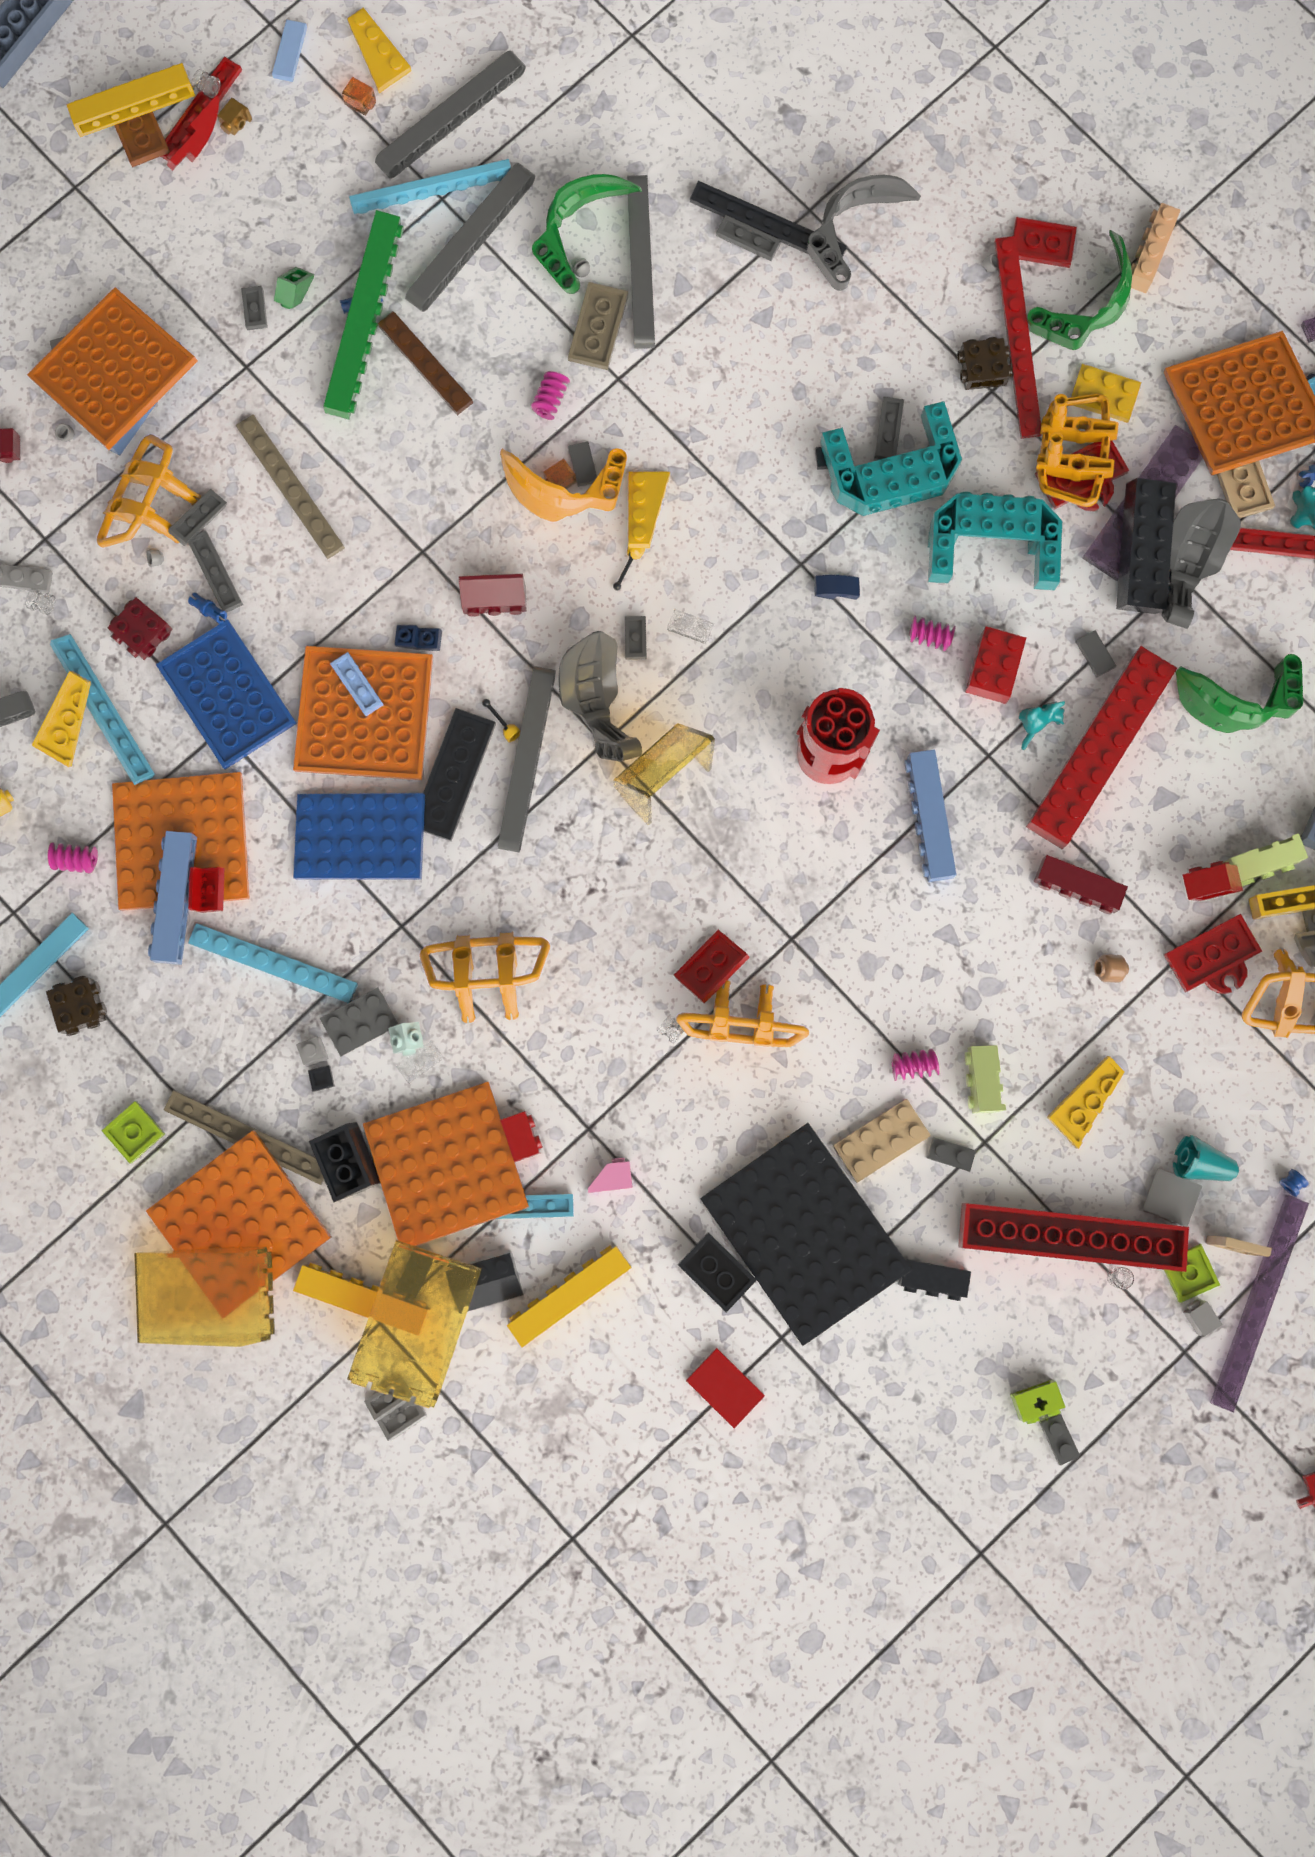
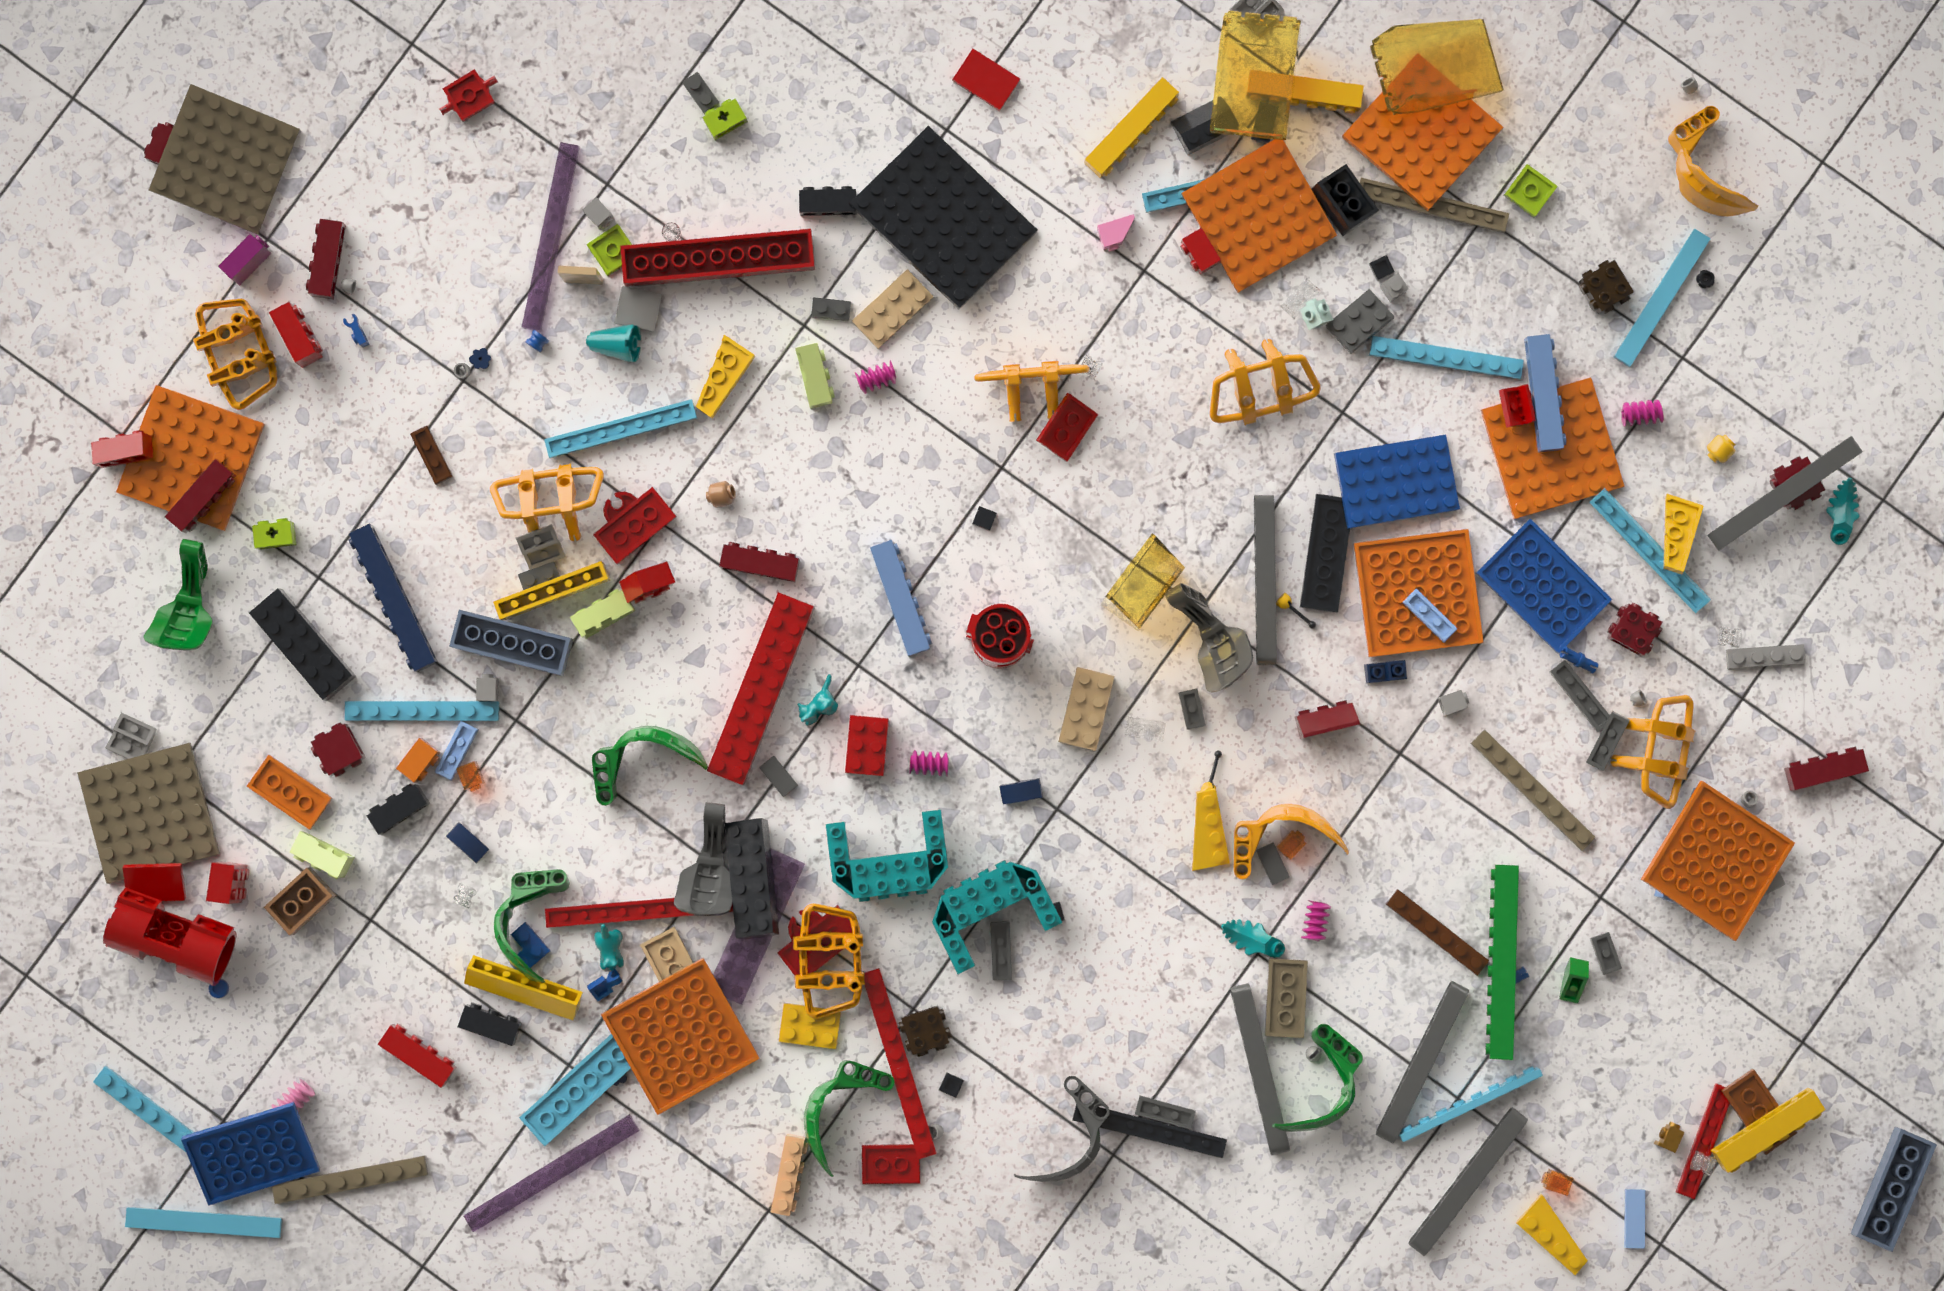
camera: 170 degrees right, 5 degrees up
(199, 133) = (1696, 1119): red slope -> none
(353, 590) = (1453, 702): none -> light grey brick
(619, 391) = (1253, 938): none -> teal plant
(717, 1272) = (1012, 170): black brick -> none
(750, 658) = (1086, 709): none -> tan brick
(821, 886) = (984, 518): none -> black tile
(965, 307) = (951, 1085): none -> black tile
(1212, 1064) = (620, 428): none -> medium azure plate

